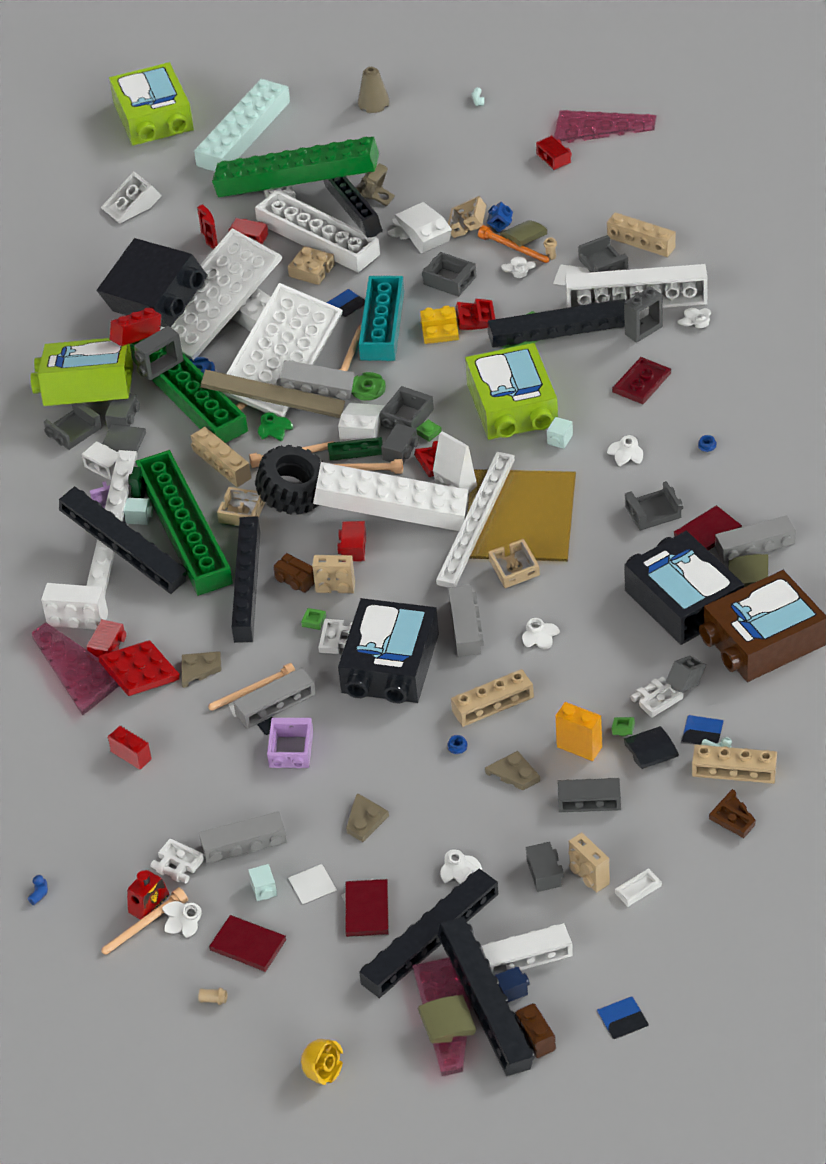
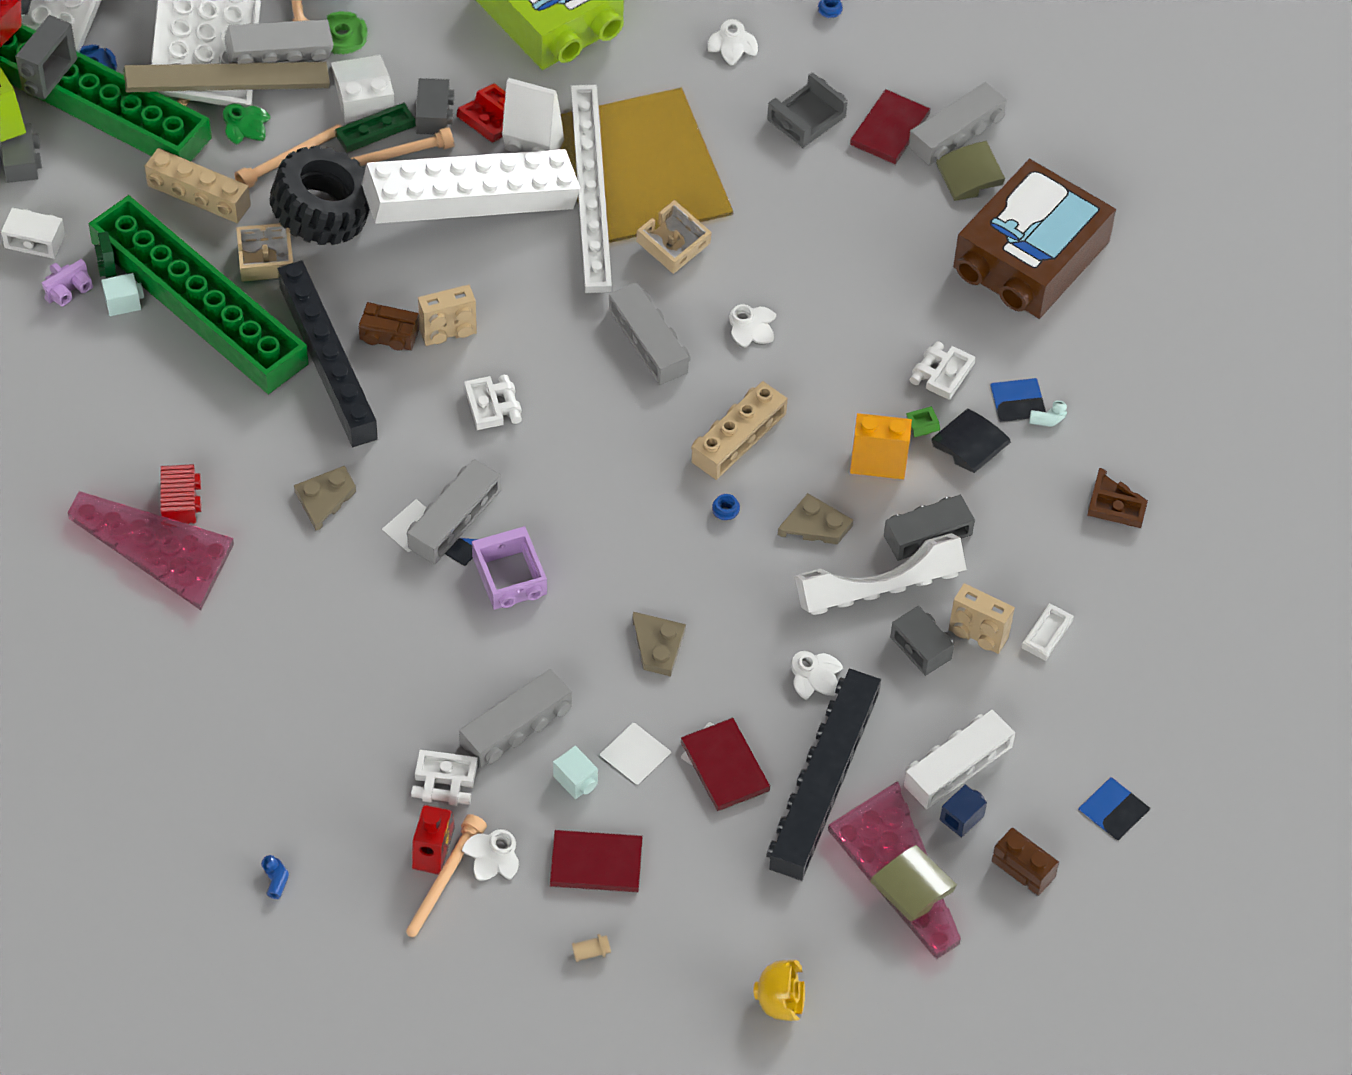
camera: 30 degrees left, 10 degrees up
(74, 605) = (113, 457): white brick -> none
(115, 503) = (99, 327): white plate -> none
(123, 539) = (132, 343): black brick -> none
(124, 437) = (42, 193): dark grey tile -> none
(129, 747) = (296, 637): red brick -> none
(139, 668) = (247, 520): red plate -> none
(240, 693) = (449, 472): light nougat piece -> none
(313, 618) = (447, 384): bright green plate -> none
(352, 540) = (442, 260): red brick -> none
(388, 650) = (577, 404): black brick -> none
(409, 398) = (409, 36): dark grey window -> none
(428, 430) = (459, 76): bright green plate -> none
(485, 996) = (944, 836): black brick -> none
(492, 813) = (934, 559): none -> white arch
(559, 432) = (636, 37): light aqua brick -> none
(677, 583) = (903, 211): brick -> none
(685, 673) = (971, 330): dark grey brick -> none
(734, 764) = (1084, 433): tan brick -> none

